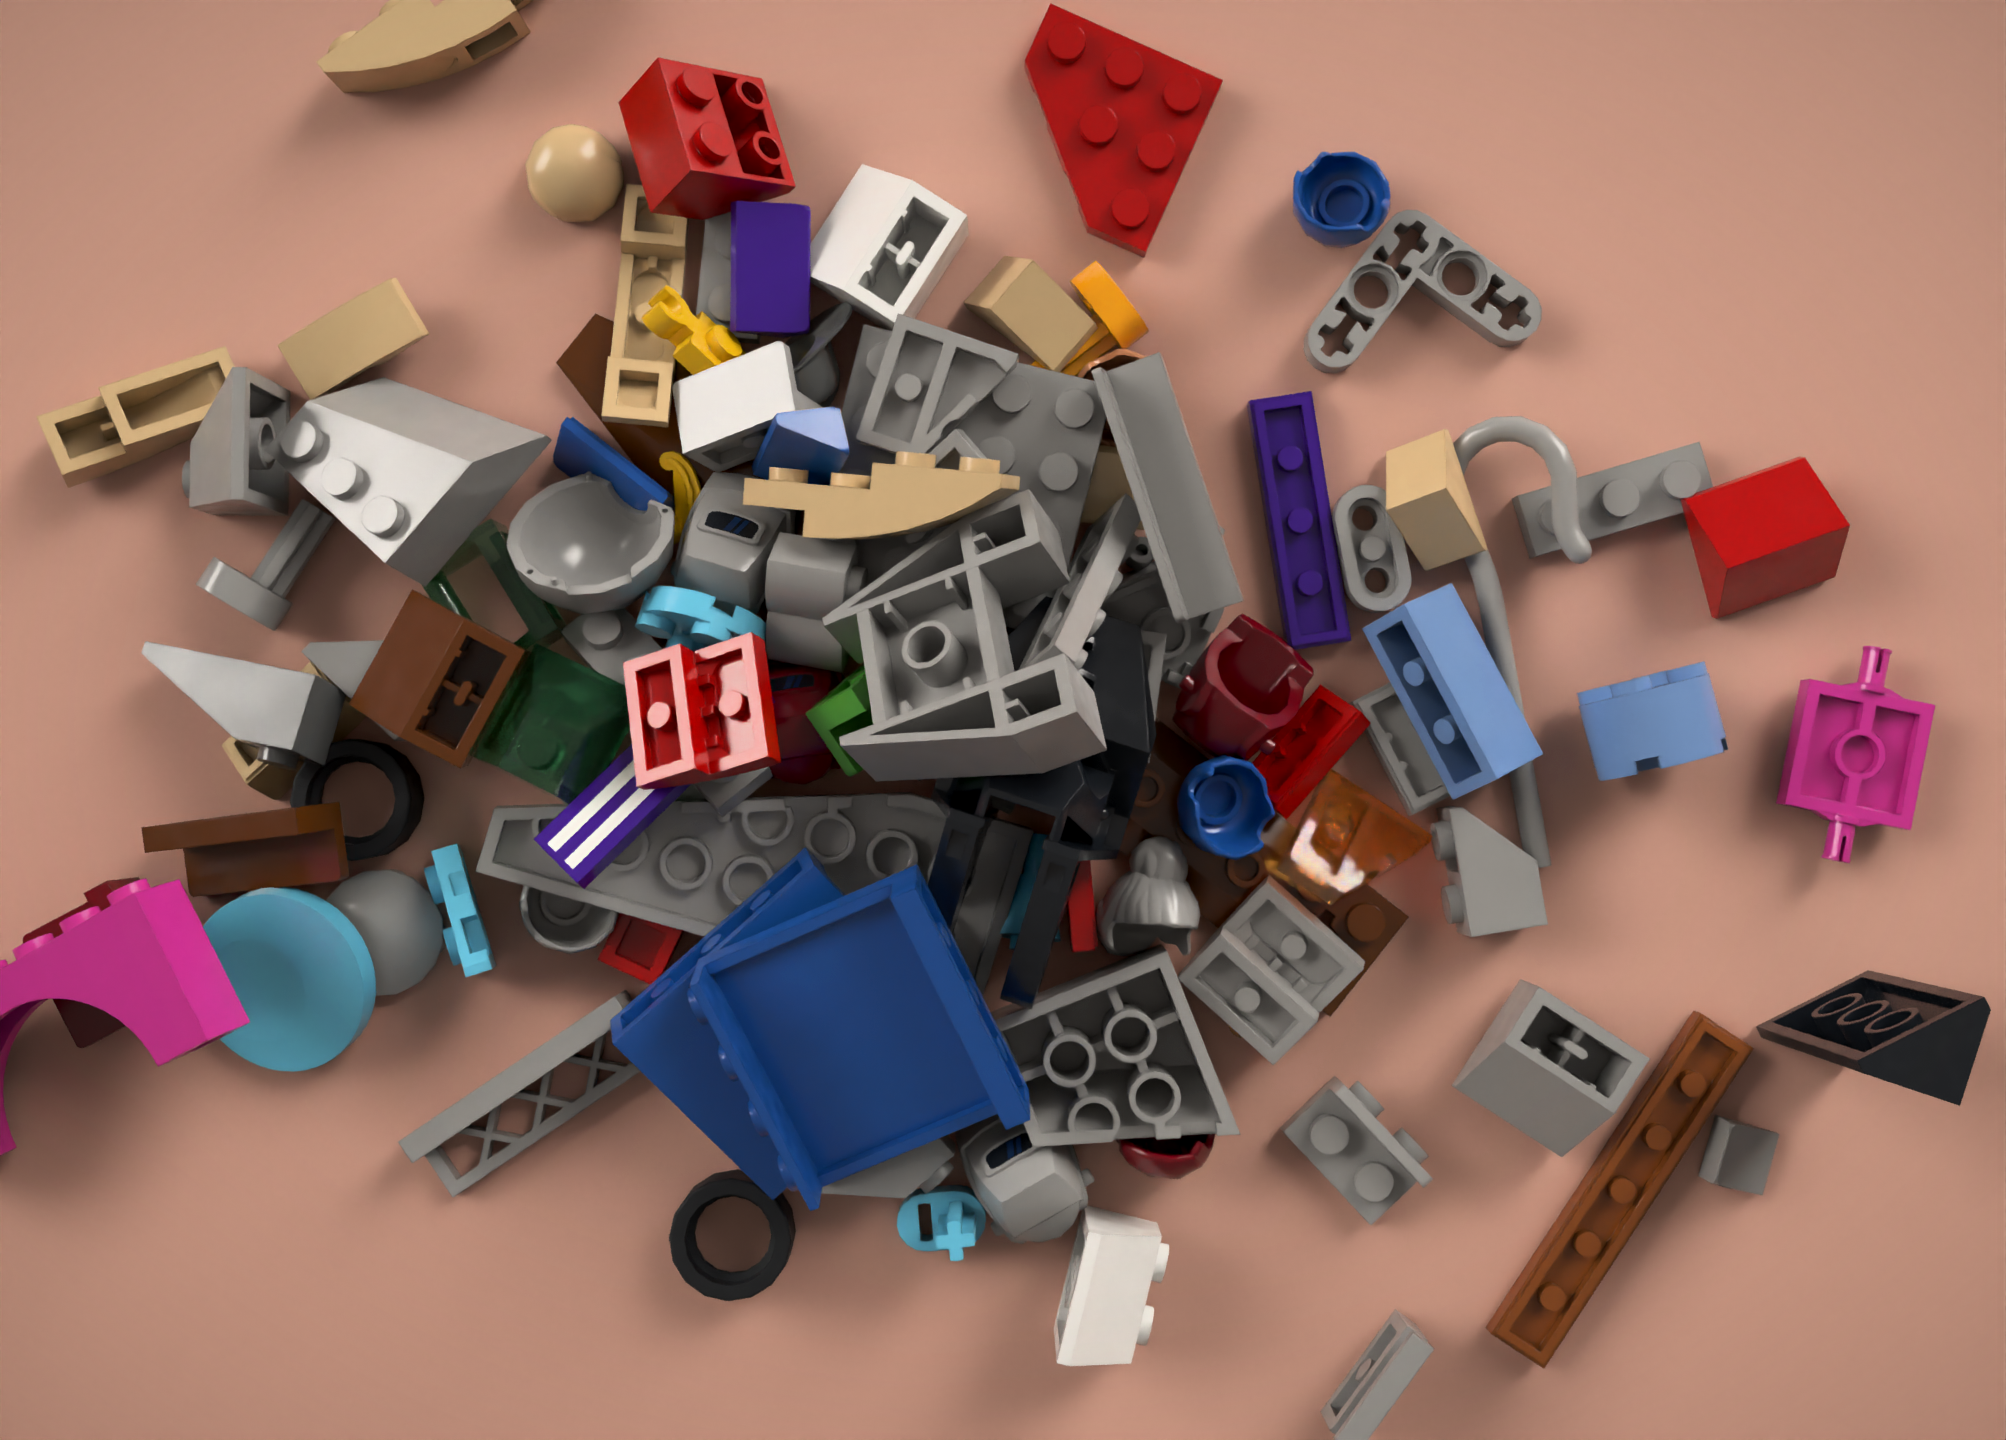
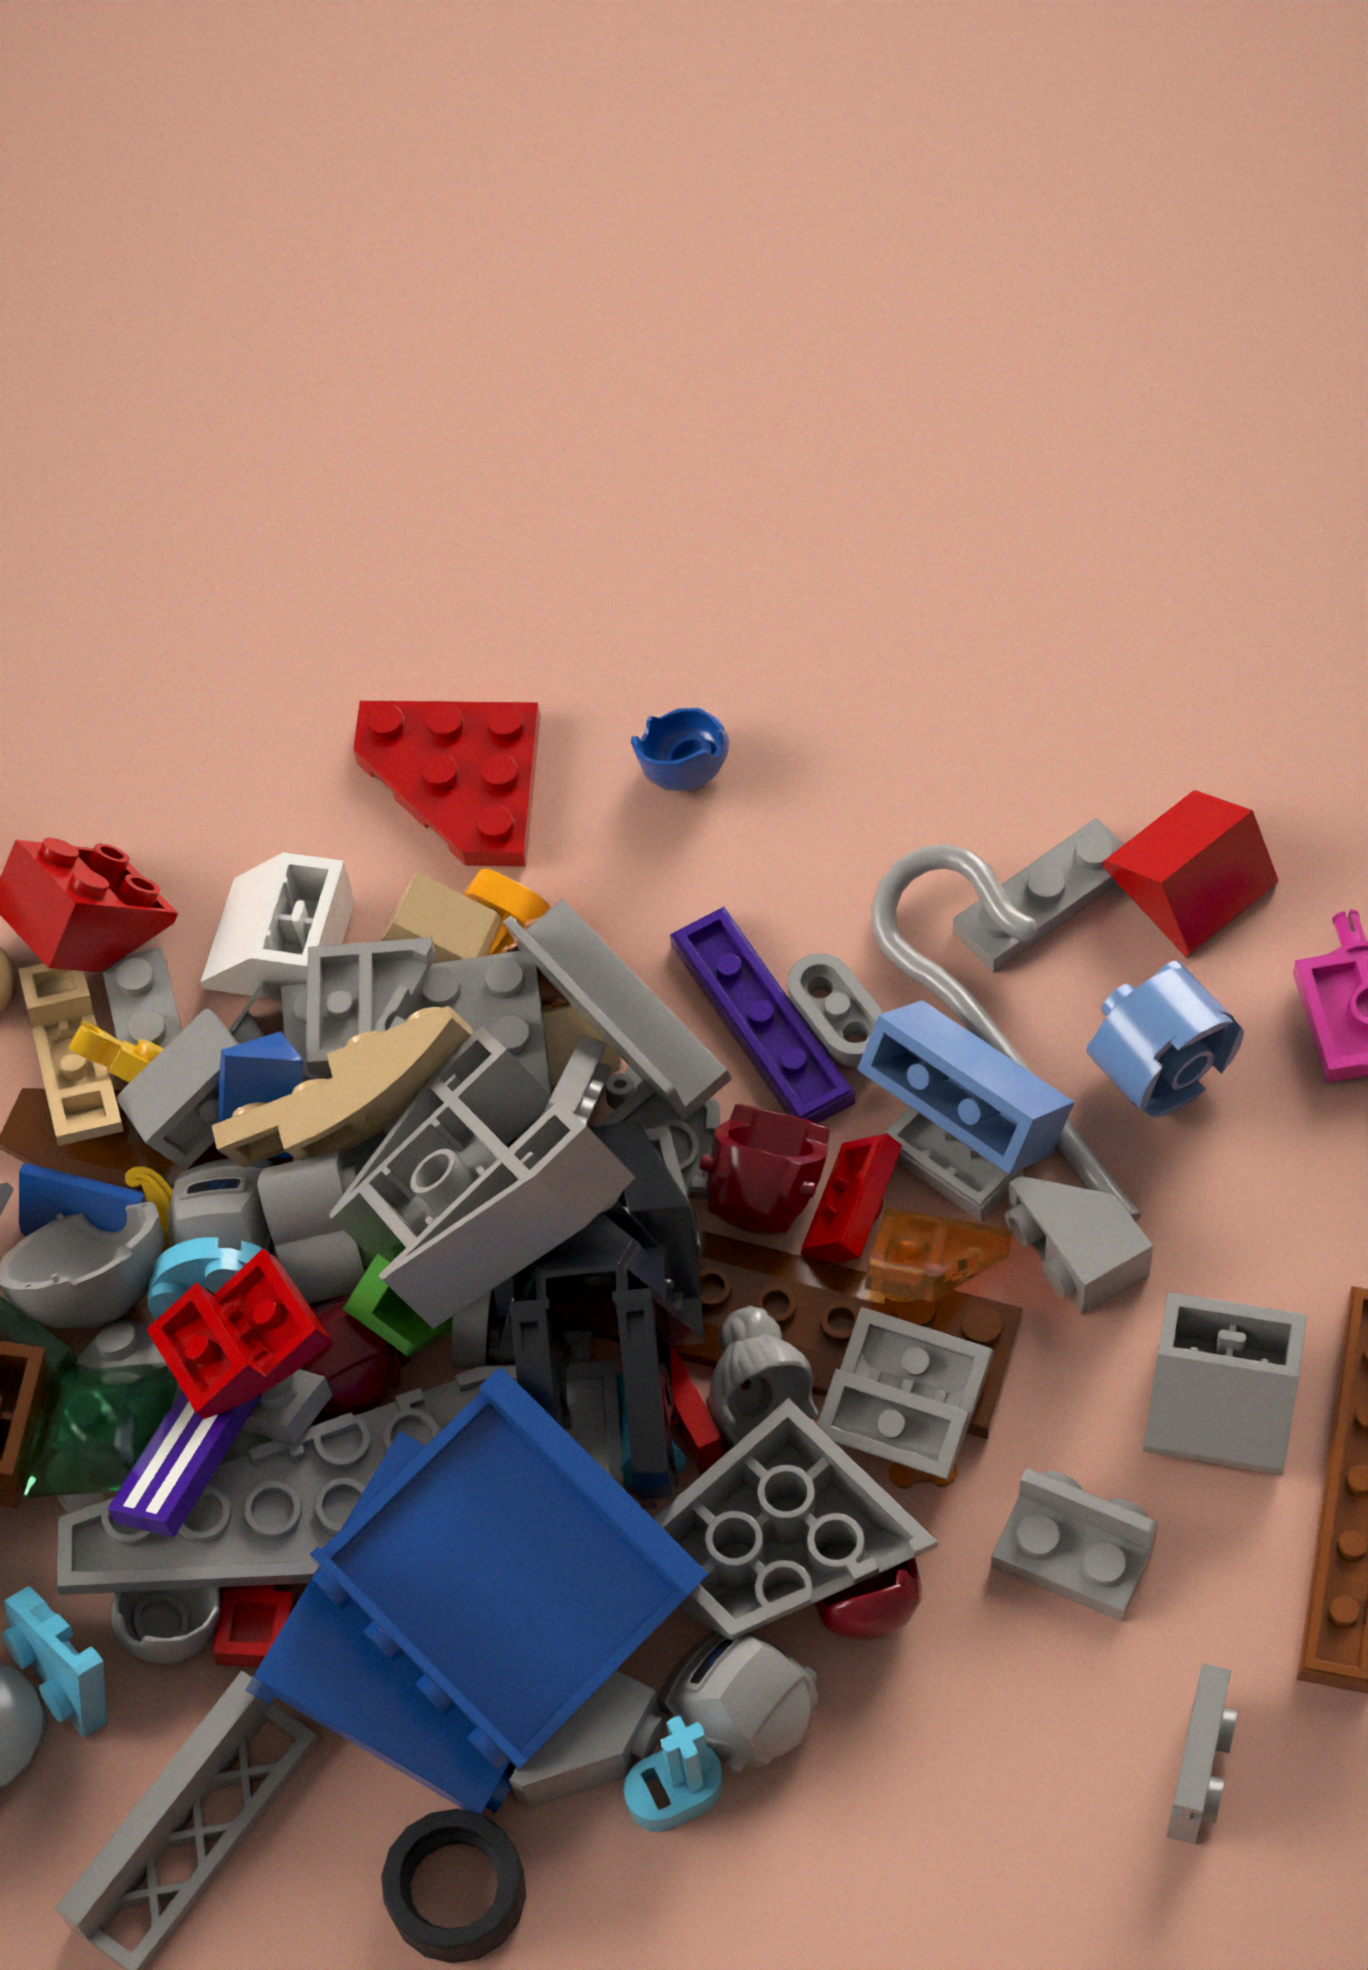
camera: 15 degrees left, 30 degrees down
(770, 268) = (175, 976): dark purple slope -> none
(1107, 1289) = (875, 1767): white slope -> none
(1225, 807) = (789, 1255): blue hair -> none
(1424, 273) = (783, 781): light grey beam -> none
(1432, 501) = (878, 949): tan slope -> none

